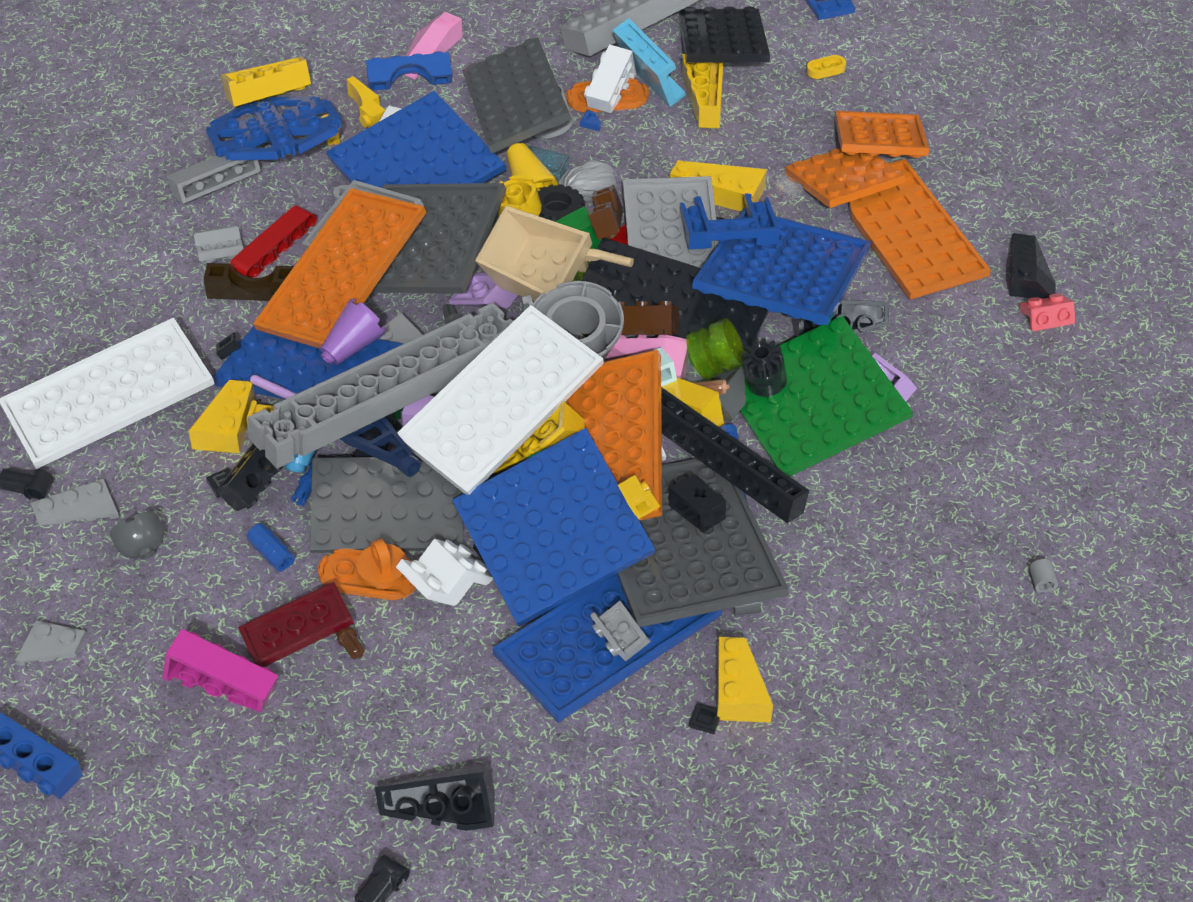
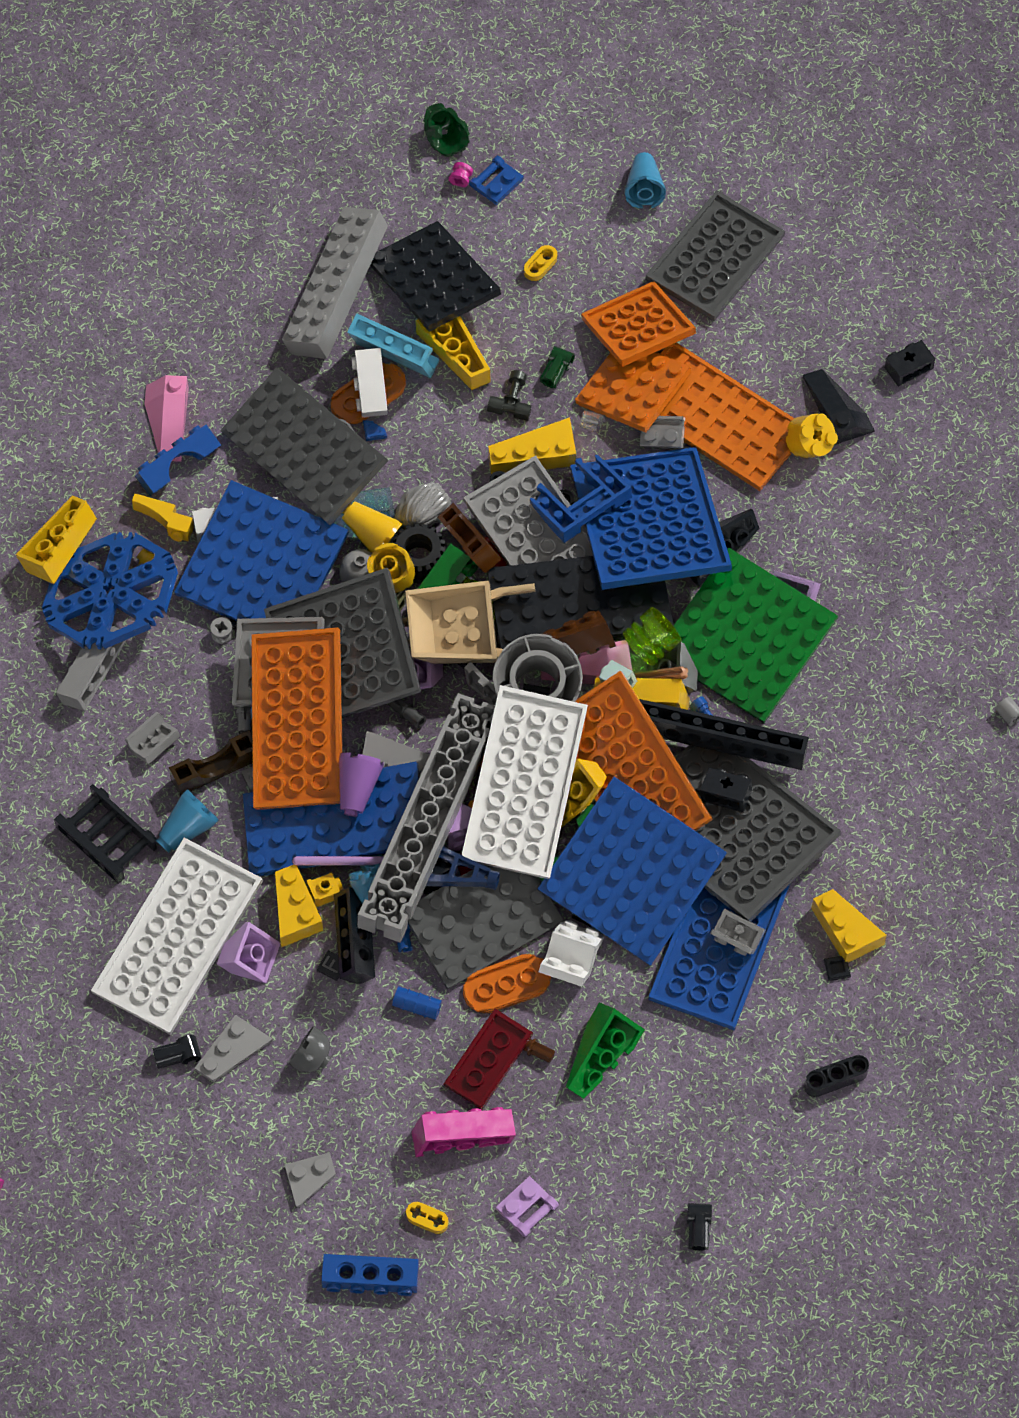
camera: 30 degrees left, 15 degrees up
(98, 290) = (99, 854): none -> black fence
(119, 737) = (429, 1212): none -> yellow beam
(157, 436) = (249, 953): none -> lavender slope
(193, 311) = (186, 821): none -> dark azure cone
(227, 768) = (521, 1200): none -> lavender plate
(228, 345) = (240, 836): black tile -> none
(273, 241) = (195, 711): red beam -> none
(378, 565) = (516, 972): orange tile -> none
(415, 668) = (603, 1042): none -> green wedge
(451, 796) = (701, 1131): black wedge -> none
(638, 496) = (690, 815): yellow brick -> none
(644, 810) = (842, 1067): none -> black beam
(726, 146) = (511, 402): none -> pearl dark grey bar
(764, 368) = (700, 644): black gear -> none
(790, 135) = (557, 365): none -> dark green piece
(847, 218) = (664, 433): none -> light grey plate
(957, 46) = (644, 182): none -> dark azure cone
(986, 270) = (811, 436): none -> yellow brick
(989, 119) = (715, 255): none -> dark grey plate
(1049, 312) = (877, 447): coral bracket -> none
(1130, 261) = (909, 362): none -> black brick

